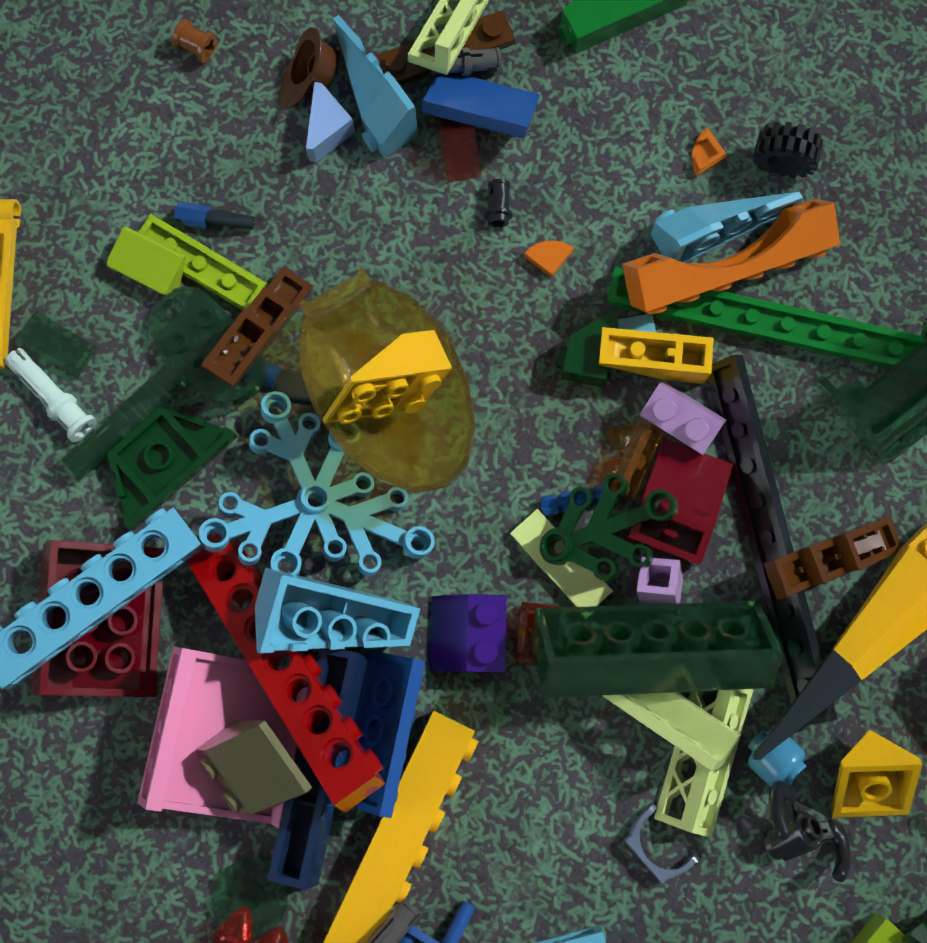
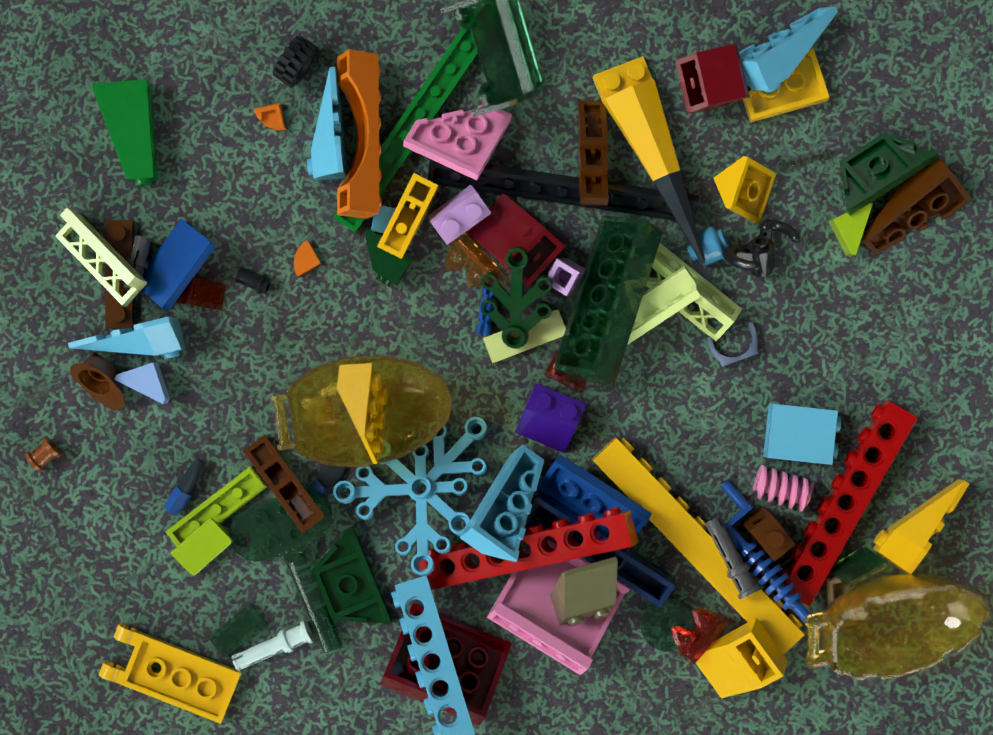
camera: 70 degrees left, 10 degrees up
(779, 382) = (459, 139): none -> bright pink plate

